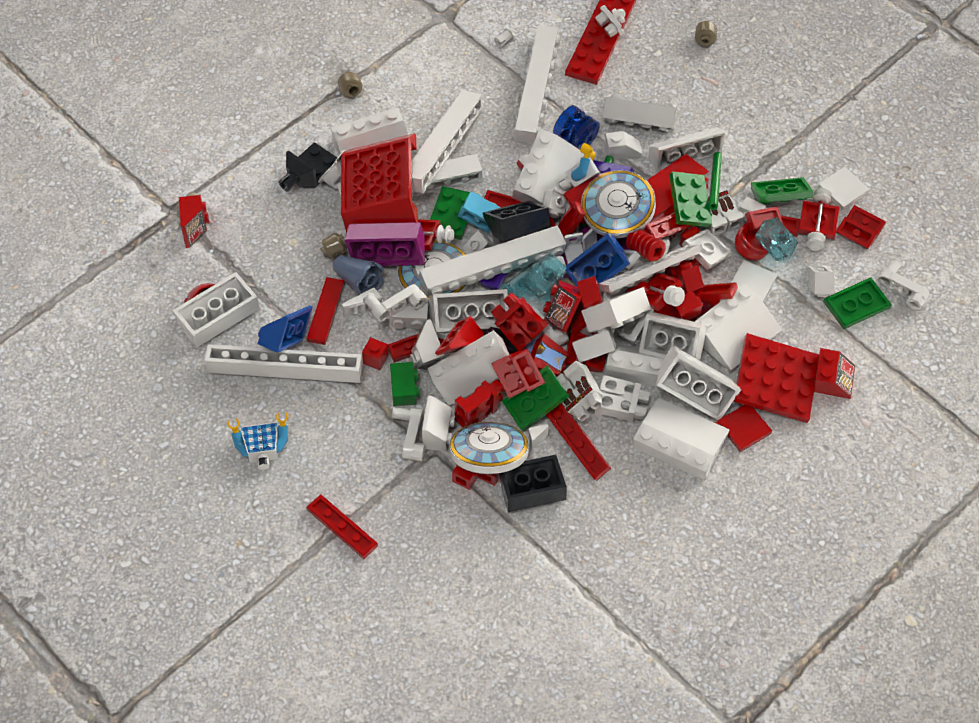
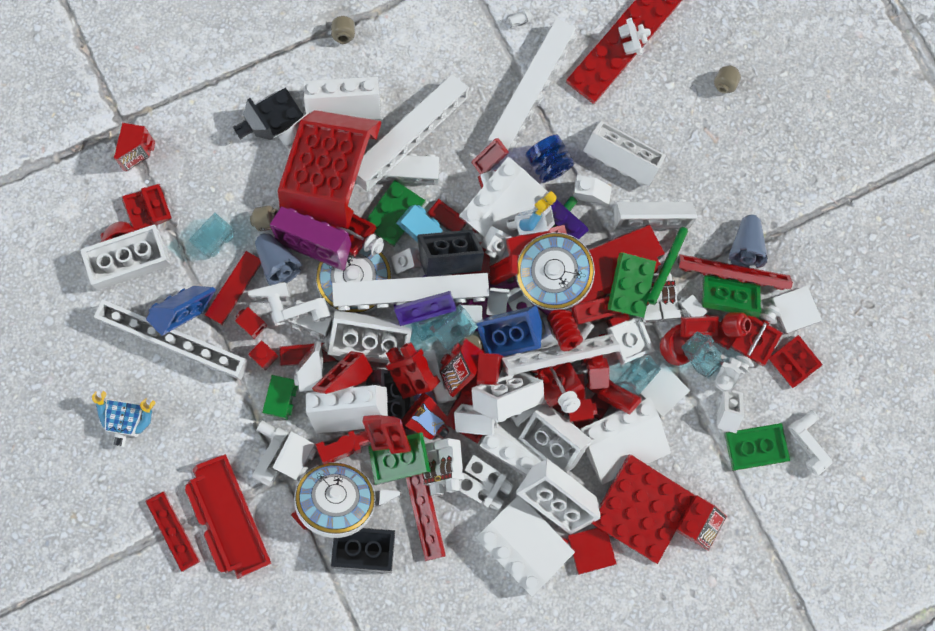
camera: 10 degrees right, 20 degrees up
(218, 267) = (146, 207): none -> red slope
(290, 273) = (212, 236): none -> clear light blue brick
(352, 331) = (250, 322): none -> red brick
(390, 500) = (229, 524): none -> red slope
(512, 267) = (425, 308): none -> dark purple plate
(521, 142) = (490, 156): none -> tile
(727, 269) = (638, 375): none -> clear light blue brick
(780, 149) = (749, 244): none -> sand blue cone
(784, 173) = (740, 273): none -> red plate
(795, 208) = (736, 324): none -> red head
(806, 249) = (728, 375): none -> white hips

